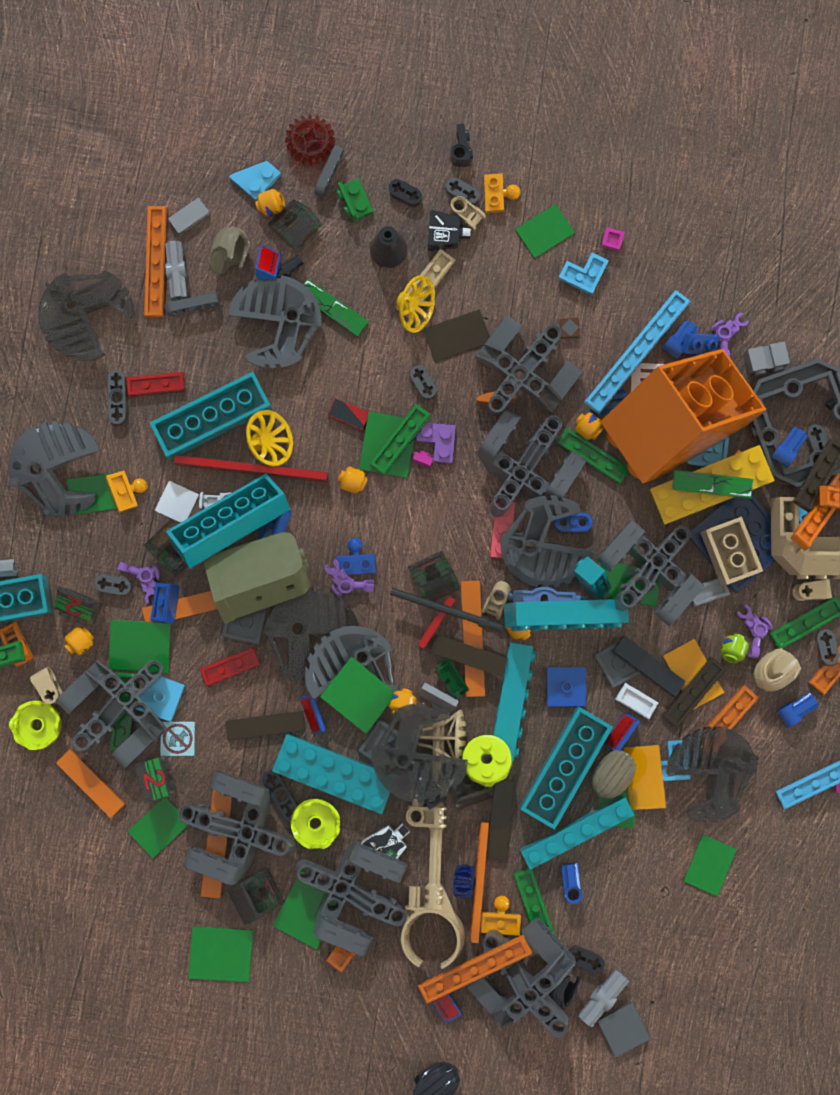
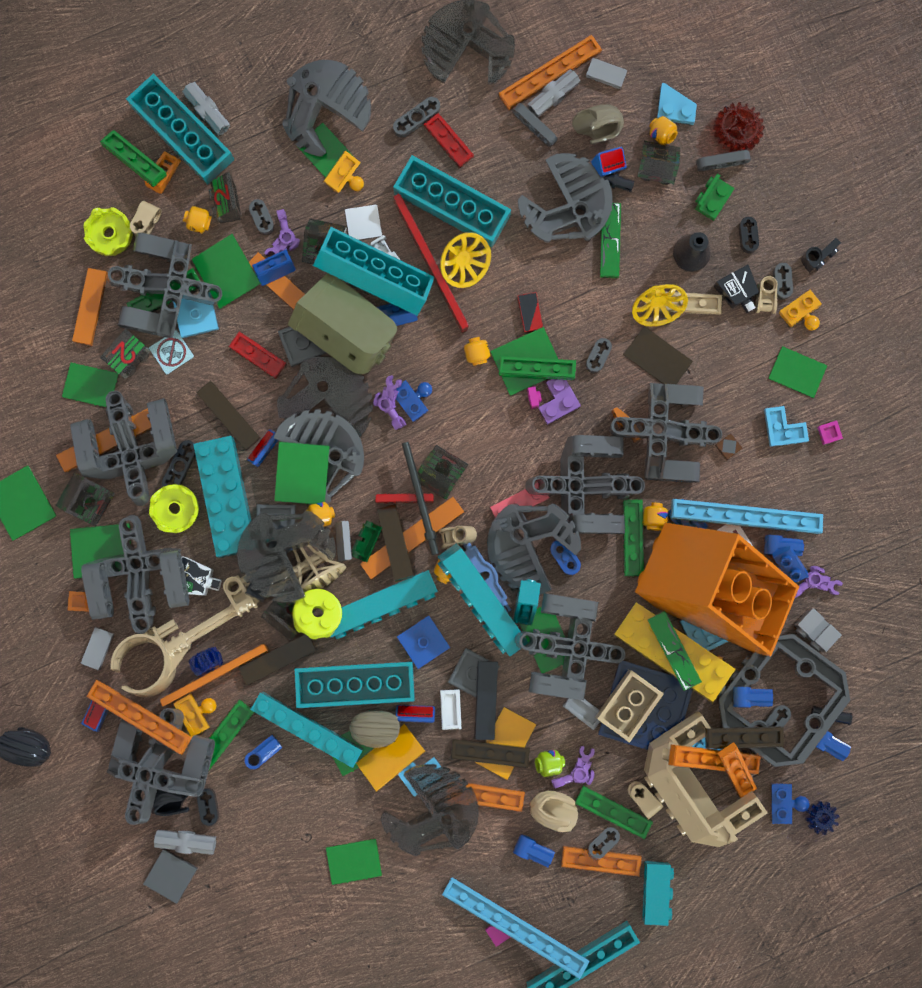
camera: 60 degrees right, 0 degrees up
(390, 967) = (97, 648): none -> light grey tile

